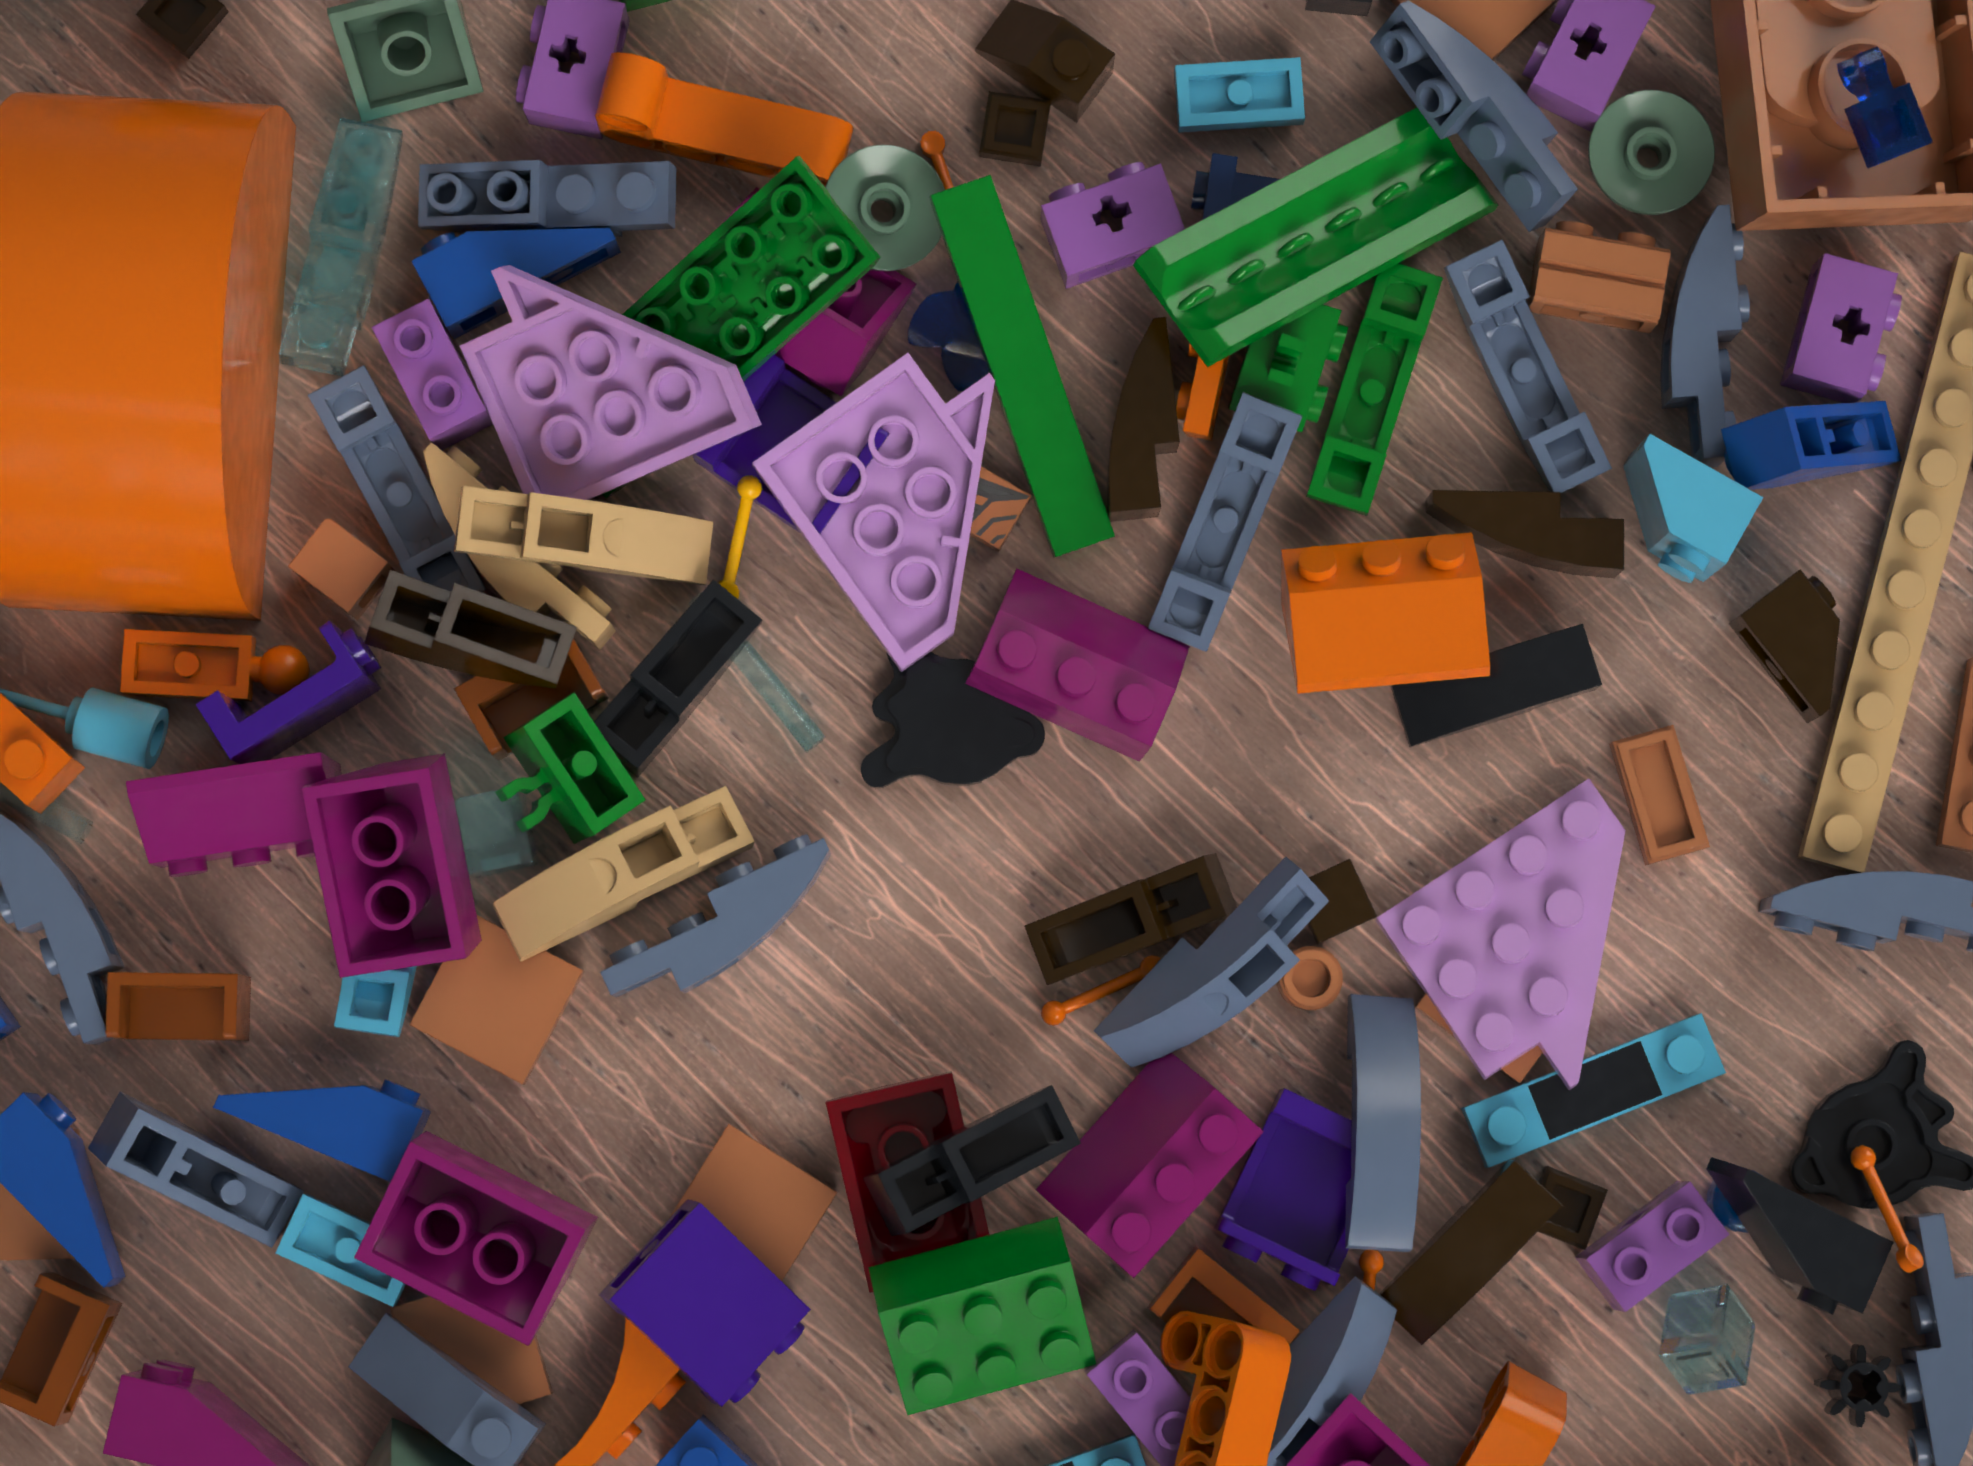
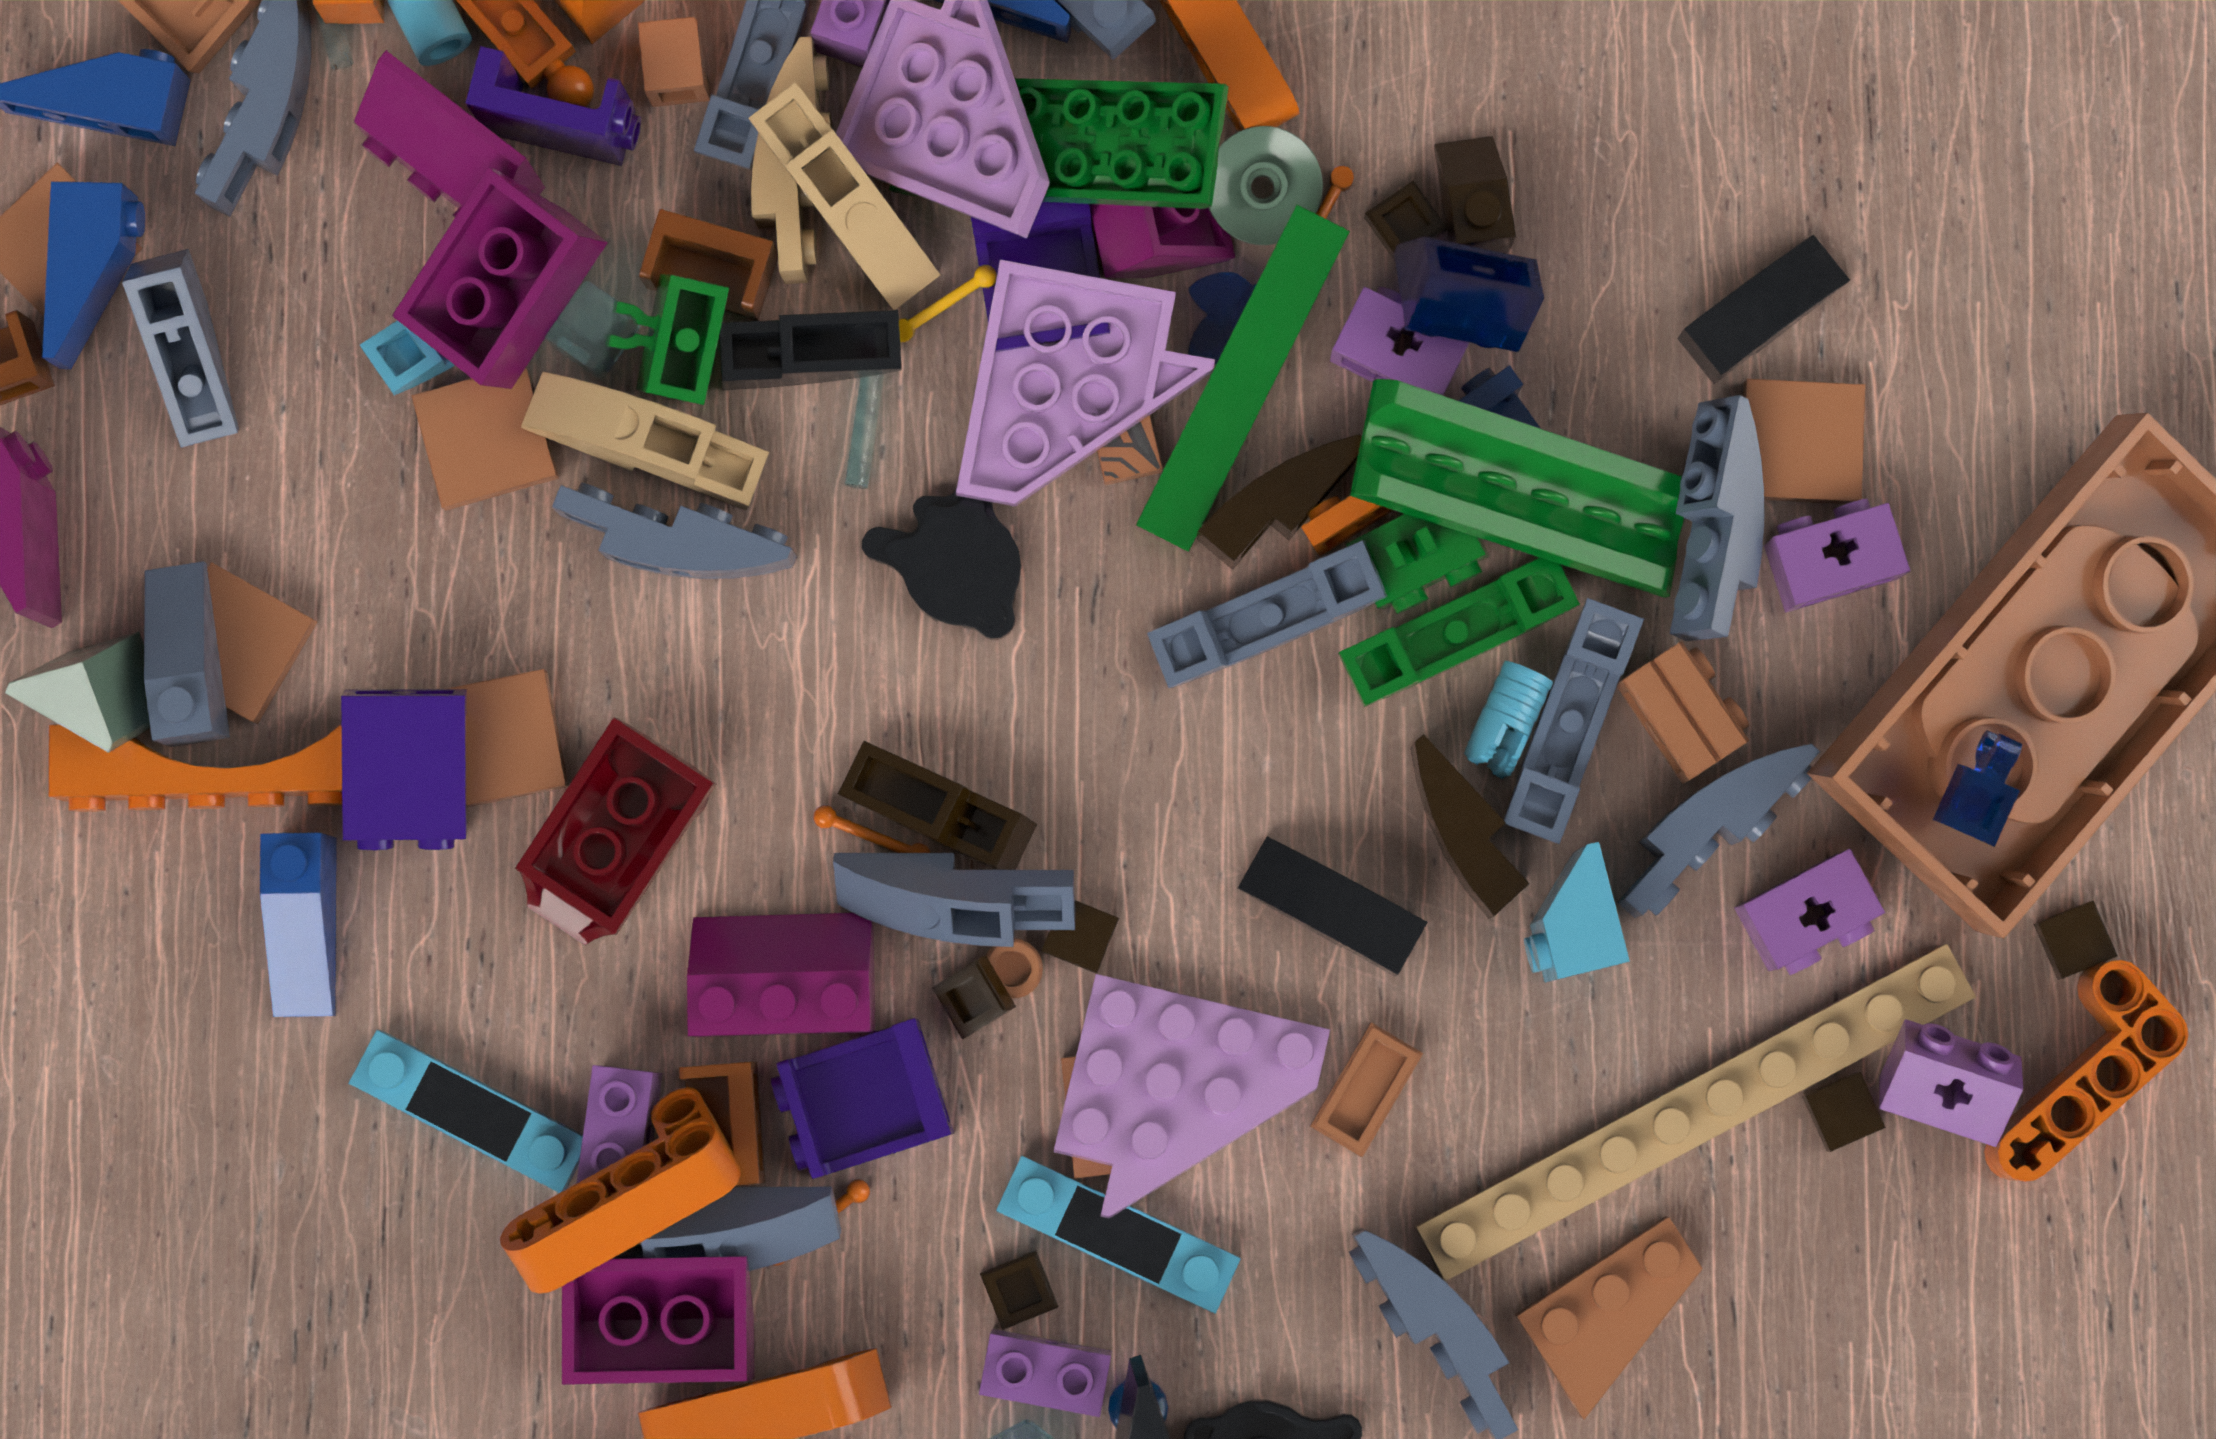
camera: 55 degrees right, 0 degrees up
(178, 1006) = (279, 233): dark orange panel -> none
(327, 1241) = (224, 498): medium azure plate -> none
(347, 1123) = (309, 424): blue slope -> none
(469, 632) = (704, 181): dark brown slope -> none
(475, 1237) = (308, 571): magenta slope -> none
(971, 1161) = (664, 851): black slope -> none
(982, 1315) = (567, 957): green brick -> none
(1079, 665) = (1075, 607): magenta slope -> none
(1125, 131) = (1467, 292): none -> clear blue slope
(1239, 94) = (1578, 351): medium azure plate -> none
(1306, 1028) = (974, 997): none -> dark brown tile
(1384, 612) = (1306, 780): orange slope -> none
(1384, 1123) = (955, 1107): sand blue slope -> none
(1469, 1250) = (925, 1250): dark brown slope -> none
(1476, 416) = (1507, 718): none -> medium azure hinge
(1668, 128) = (1829, 644): sand green dish -> none
(1795, 641) = (1562, 1081): dark brown slope -> none
(1809, 443) = (1707, 963): blue slope -> none

